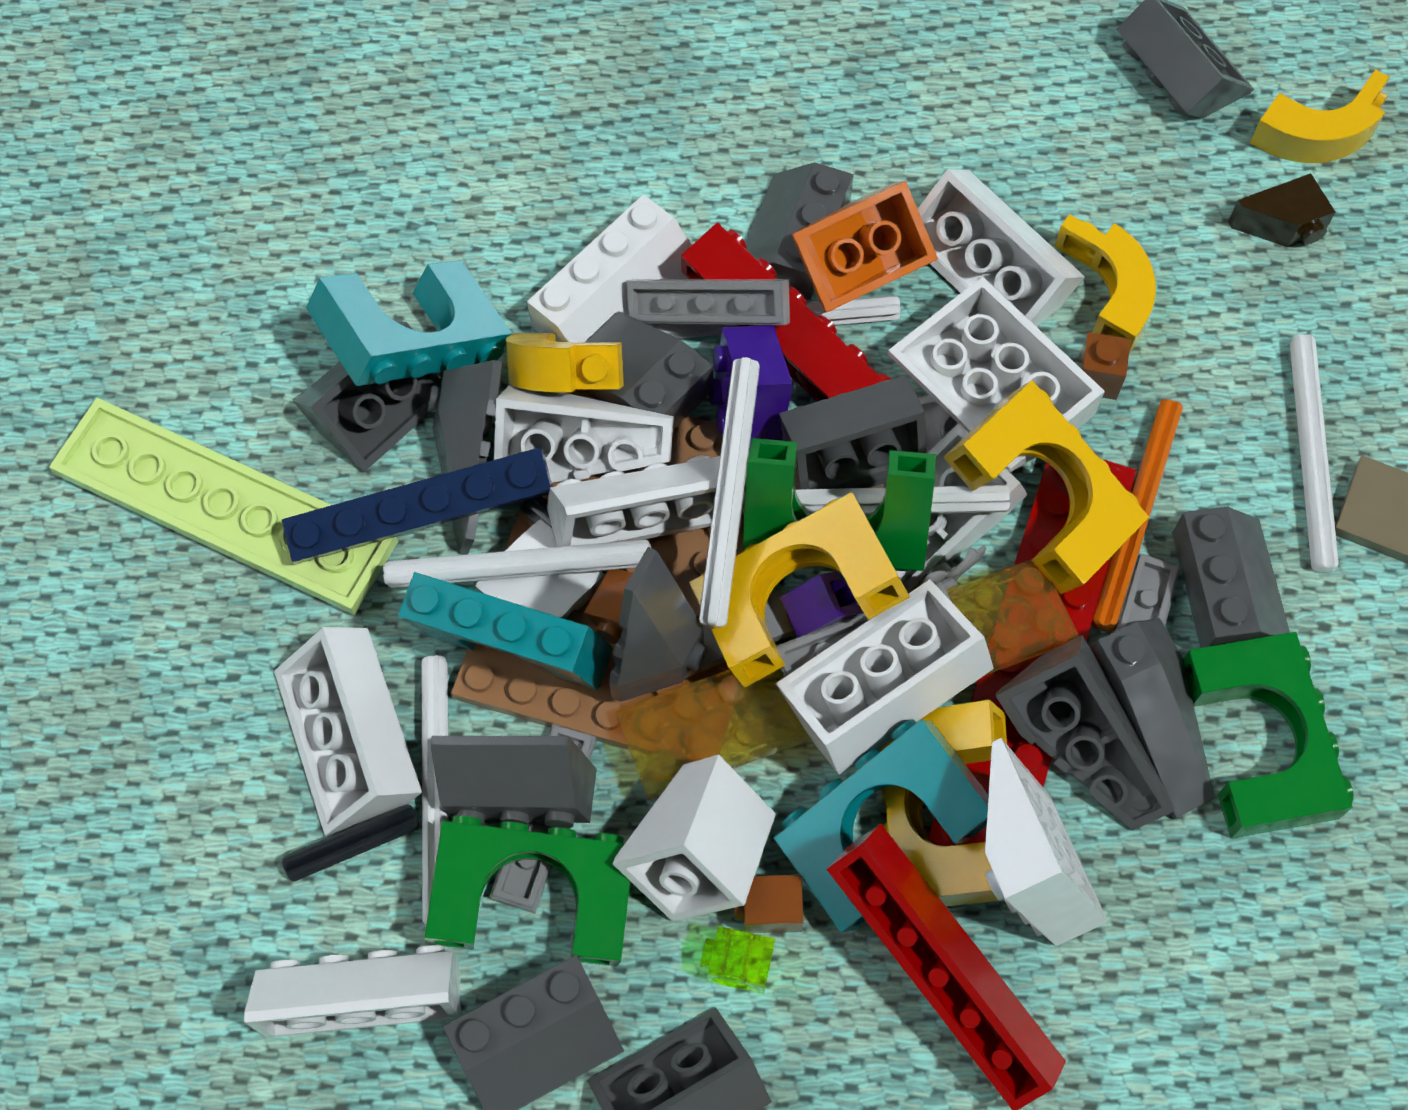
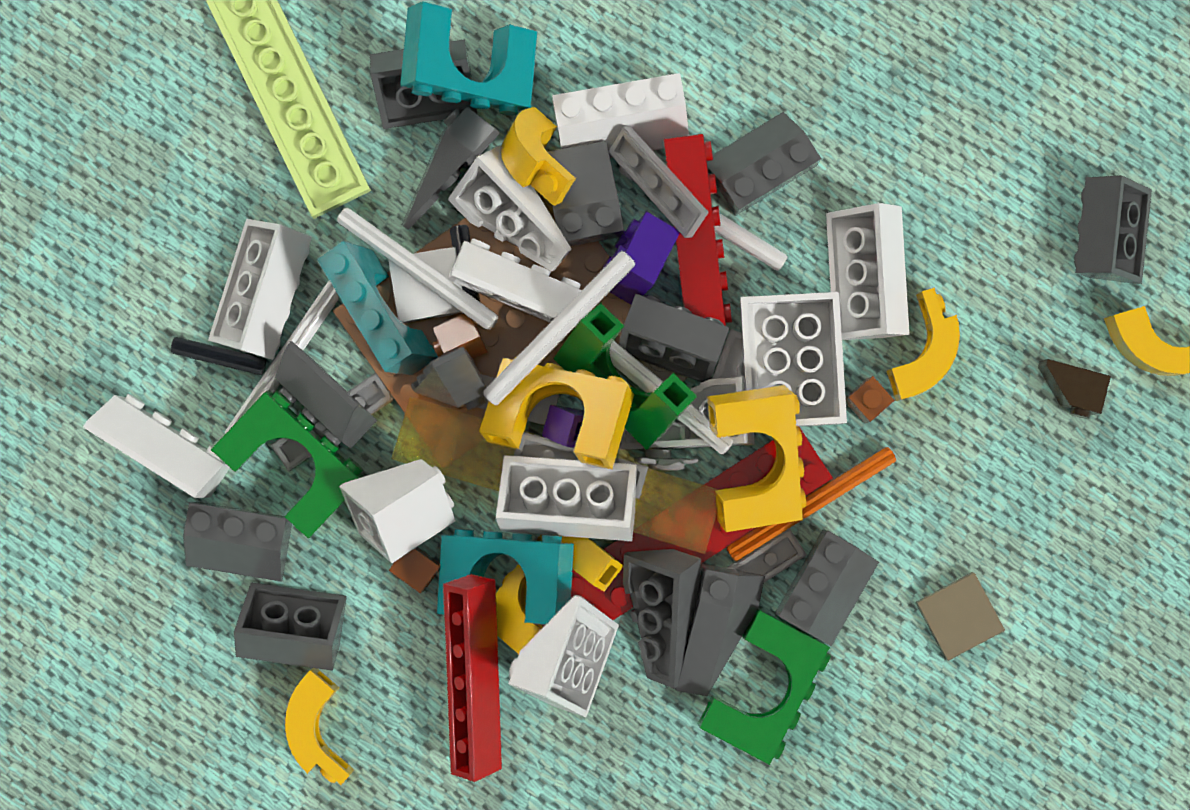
camera: 40 degrees right, 20 degrees up
(417, 505) = (389, 186): dark blue plate -> none
(738, 959) = (374, 583): clear neon green brick -> none
(864, 245) = (785, 213): orange slope -> none
(1313, 454) = (949, 547): white axle -> none

